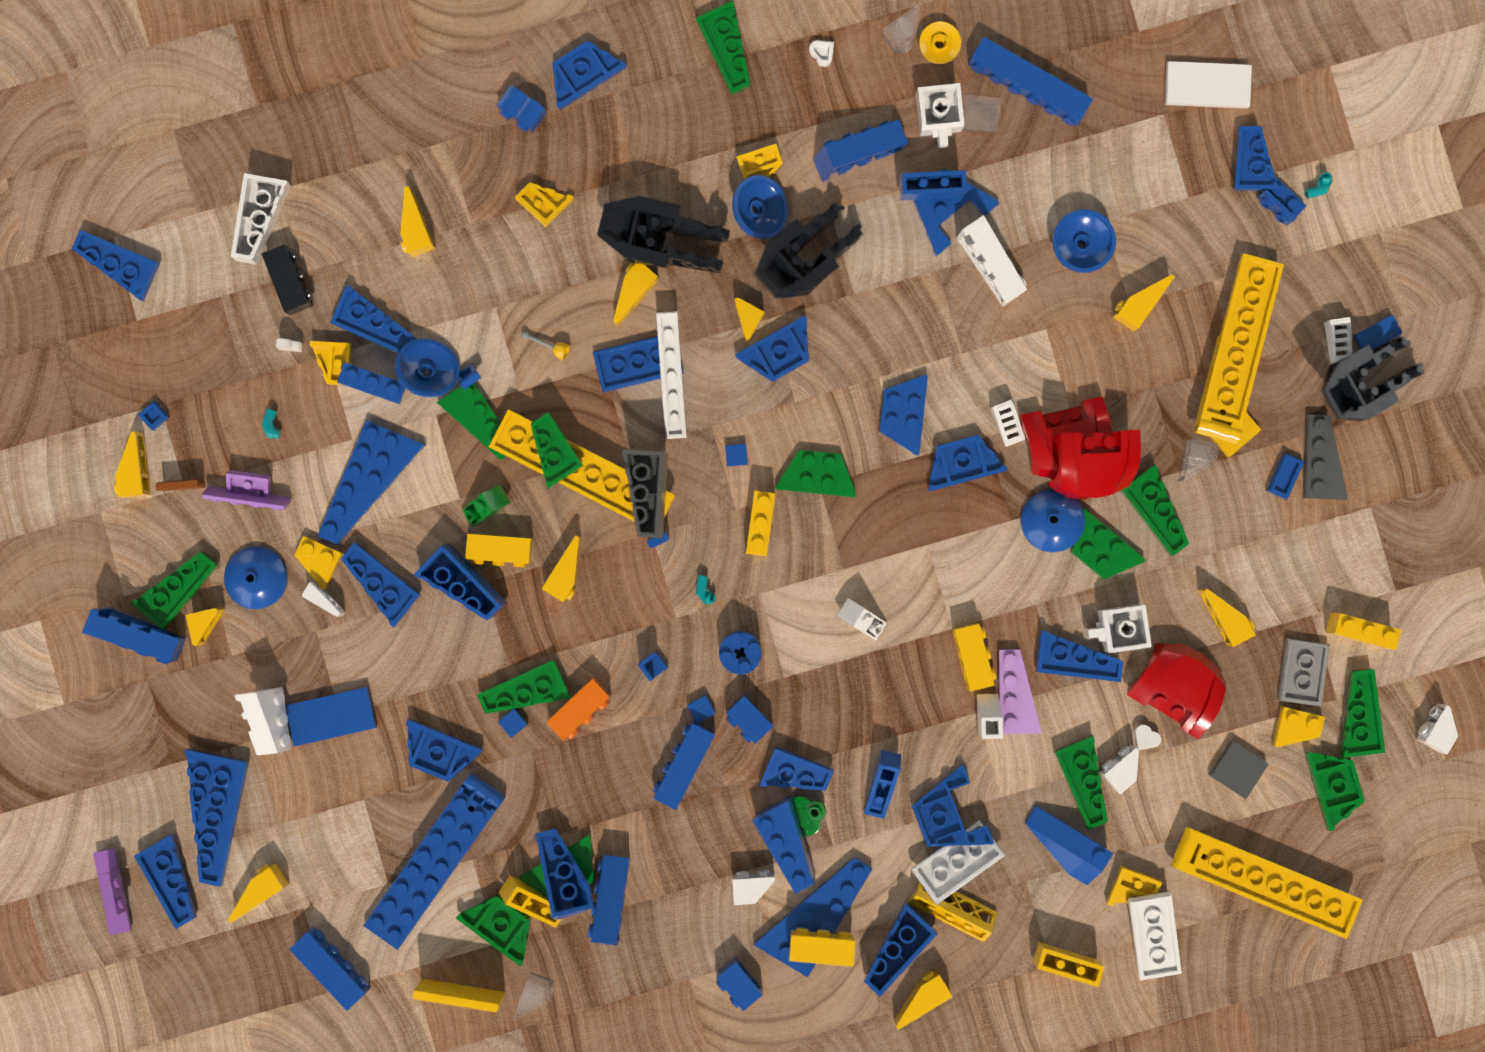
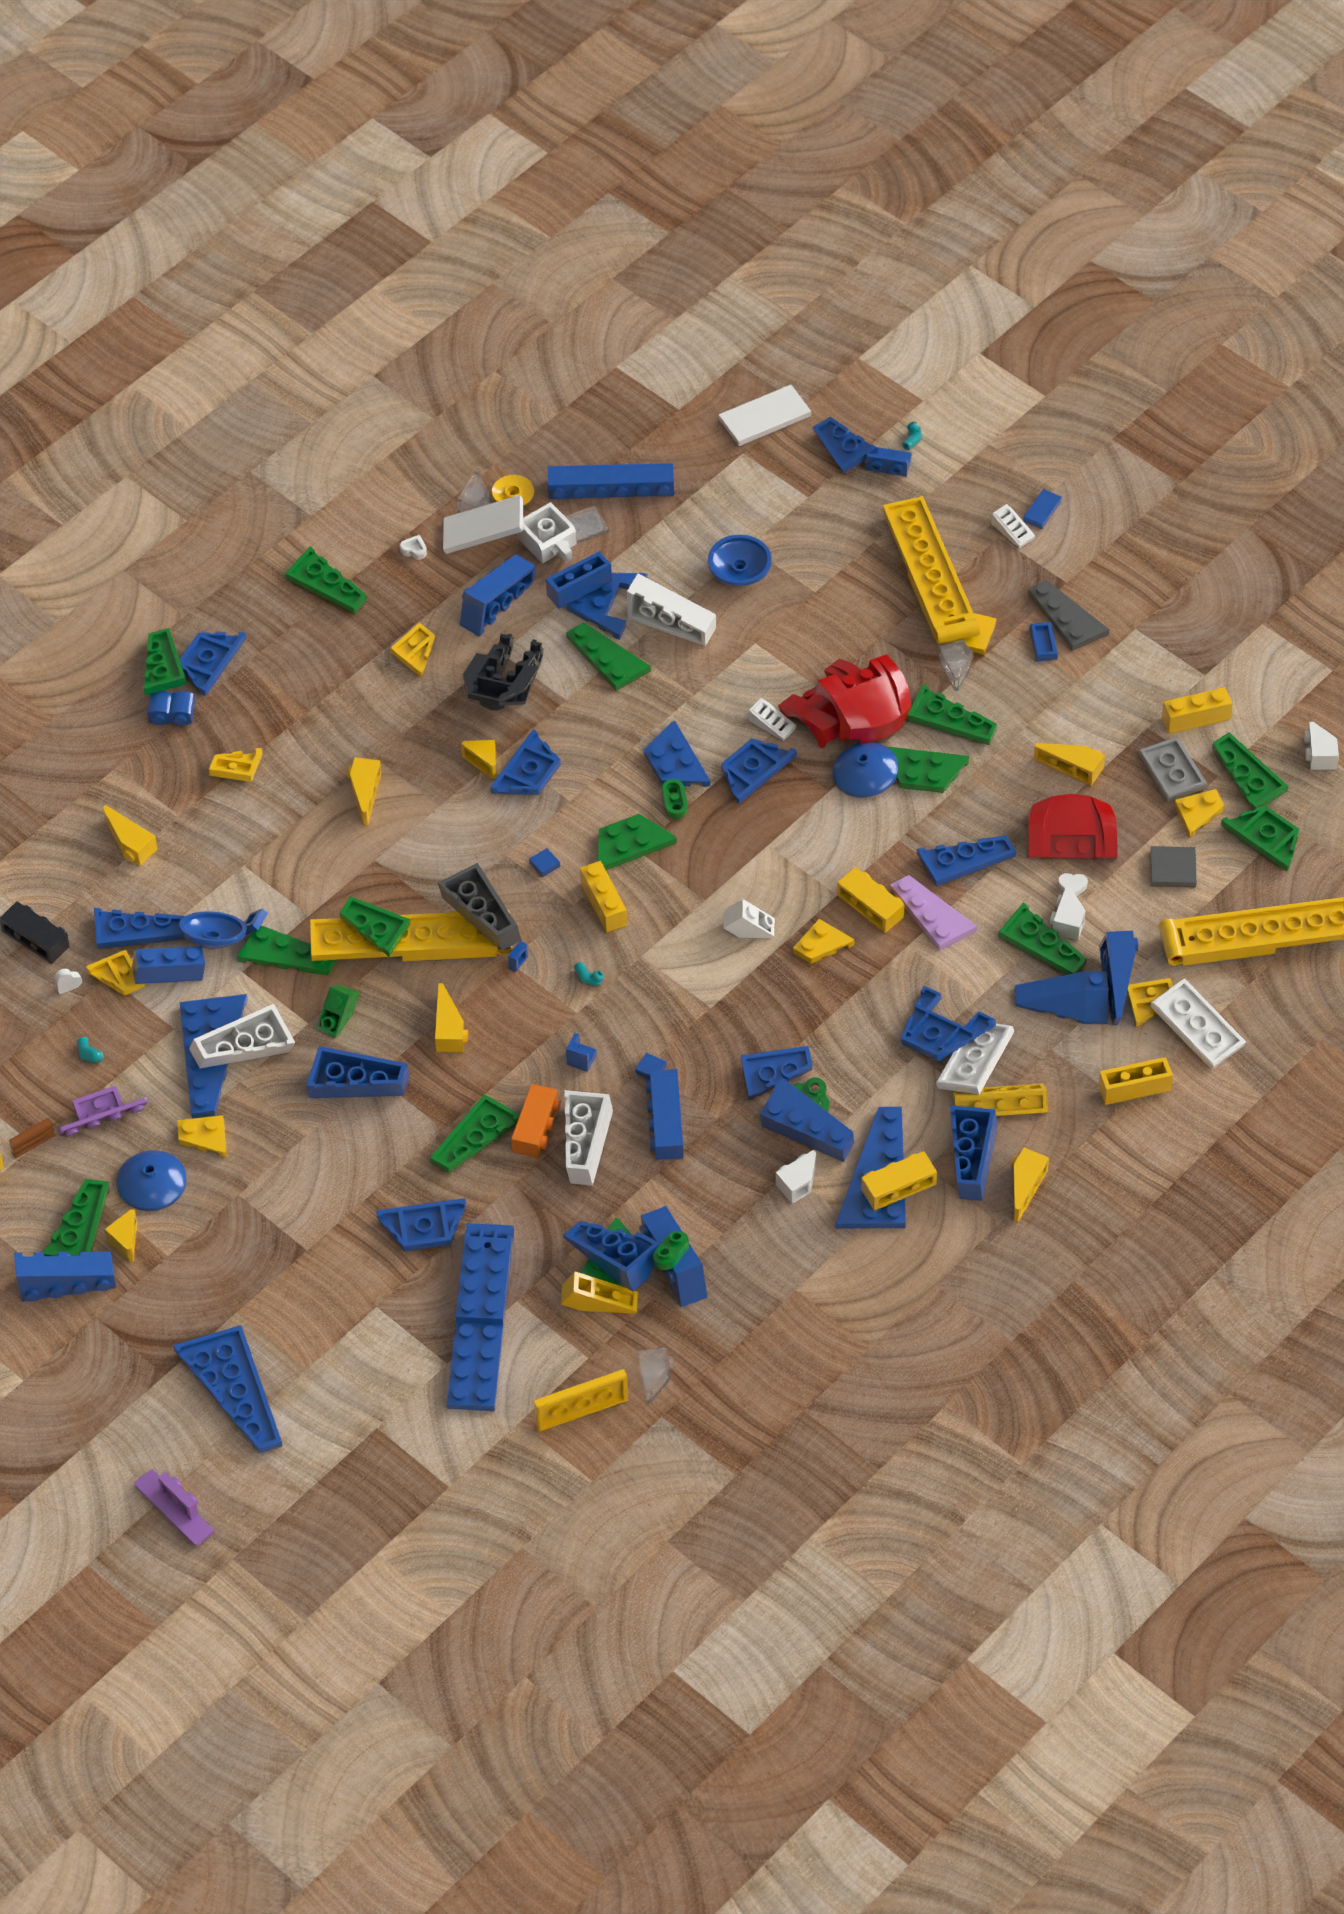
camera: 30 degrees left, 35 degrees down
(168, 880) = (217, 1462): blue wing -> none
(261, 887) = (326, 1420): yellow slope -> none
(267, 720) = (239, 1273): white wedge -> none
(322, 599) = (228, 1158): white slope -> none
(330, 716) = (299, 1252): blue tile -> none
(330, 968) = (438, 1454): blue brick -> none
(386, 589) = (279, 1120): blue wing -> none
(388, 498) = (244, 1039): none -> white wedge
(499, 550) = (375, 1034): yellow brick -> none
(499, 926) = (581, 1334): green wing -> none
(513, 722) = (479, 1168): blue tile -> none
(538, 58) = (162, 663): none -> green wing
(559, 349) = (326, 864): hinge -> none
(600, 917) = (671, 1250): none -> green plate
(611, 744) = (586, 1131): none -> white wedge
(628, 364) = (405, 840): blue tile -> none
(639, 229) = (366, 725): black connector -> none
(671, 375) = (439, 824): white tile -> none
(738, 984) = (844, 1259): blue brick -> none
(748, 719) = (701, 1048): blue brick -> none
(751, 648) = (655, 1000): blue brick -> none
(768, 204) = (436, 670): blue dish -> none
(879, 457) = (675, 800): none -> green plate
(883, 783) = (861, 1035): blue slope -> none
(890, 69) = (483, 524): none -> white tile
(909, 670) = (820, 942): none -> yellow wing
(915, 276) = (608, 658): none -> green wing
(989, 716) = (920, 936): white slope -> none
(1109, 628) = (986, 809): white hinge -> none
(1129, 850) = (1117, 958): none -> blue wedge
(1138, 306) = (821, 582): yellow slope -> none
(1348, 393) = (1037, 526): black connector -> none

